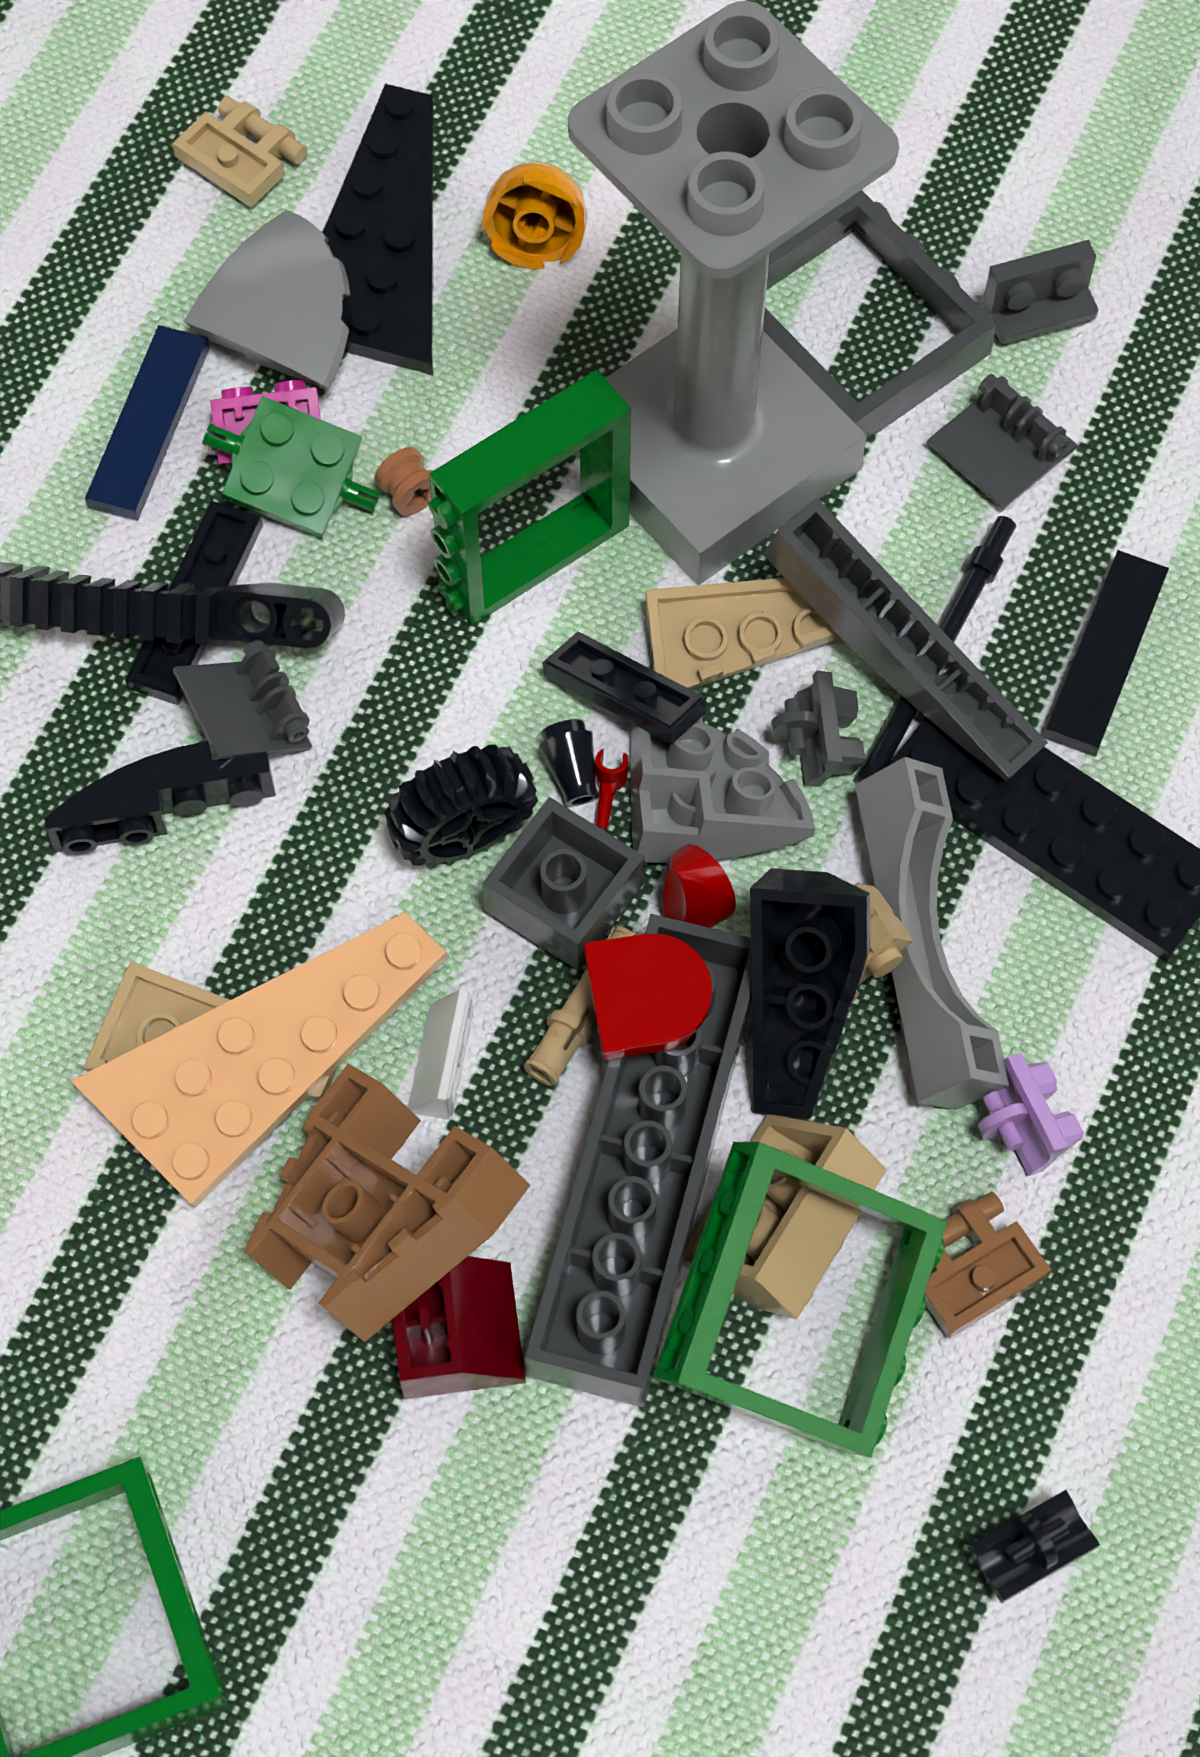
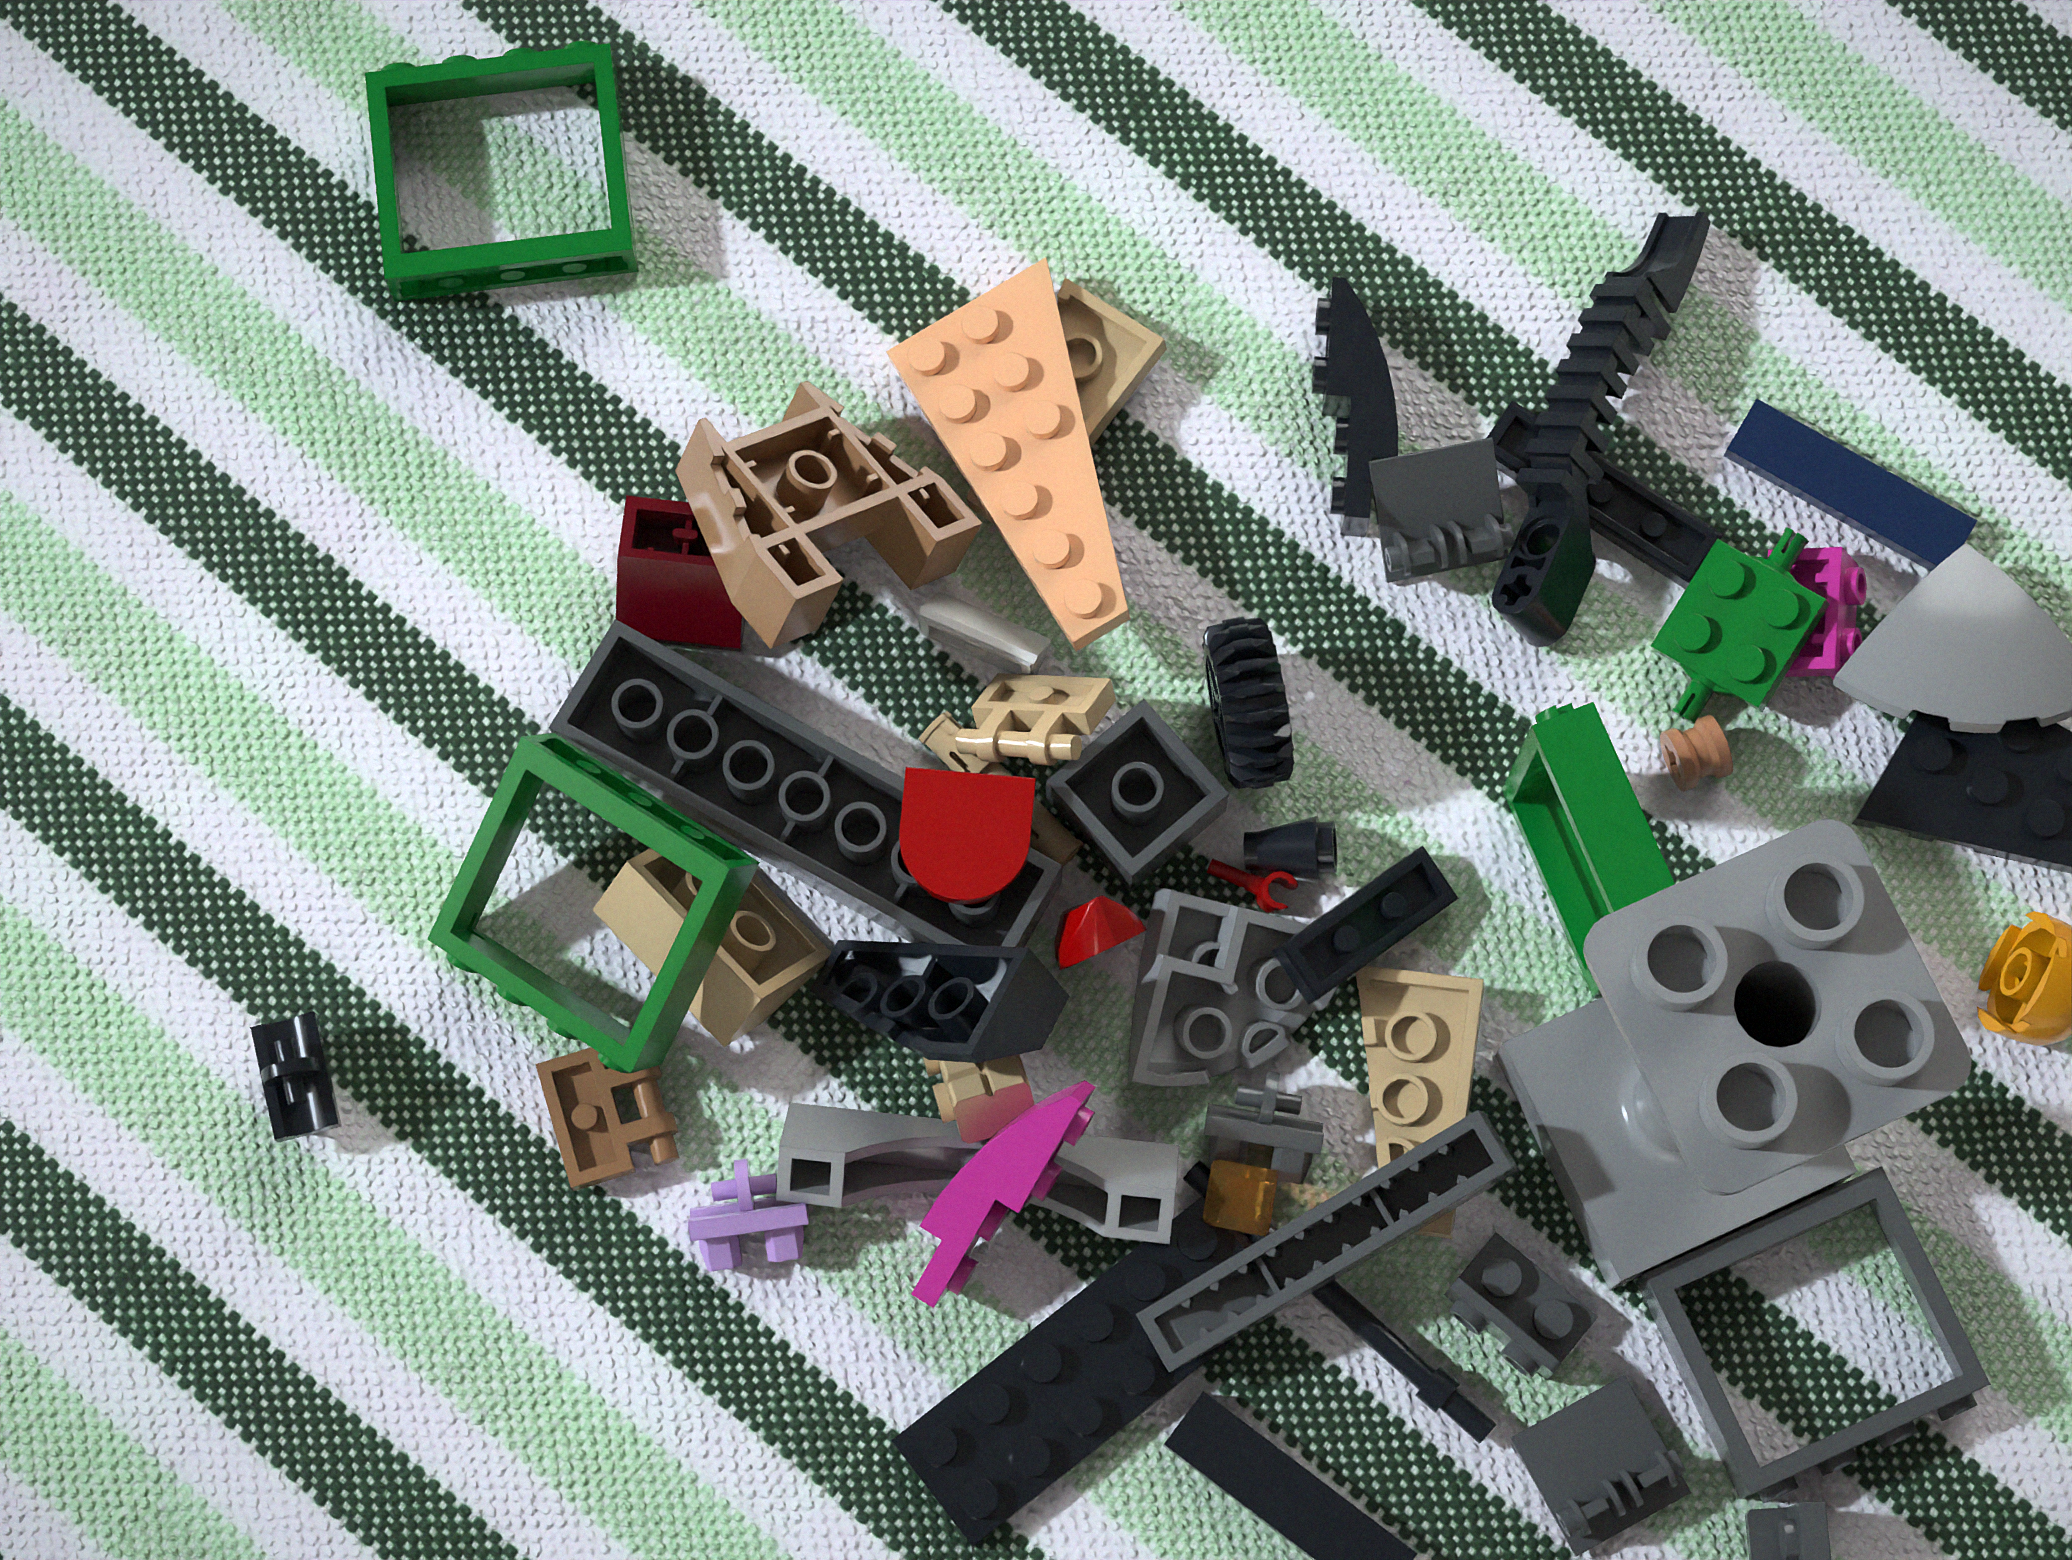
camera: 105 degrees right, 10 degrees up
(503, 980) = (1035, 717): none -> tan plate
(886, 719) = (1240, 1197): none -> clear orange slope
(901, 517) = (1519, 1308): none -> dark grey bracket
(928, 896) = (999, 1177): none -> dark pink slope

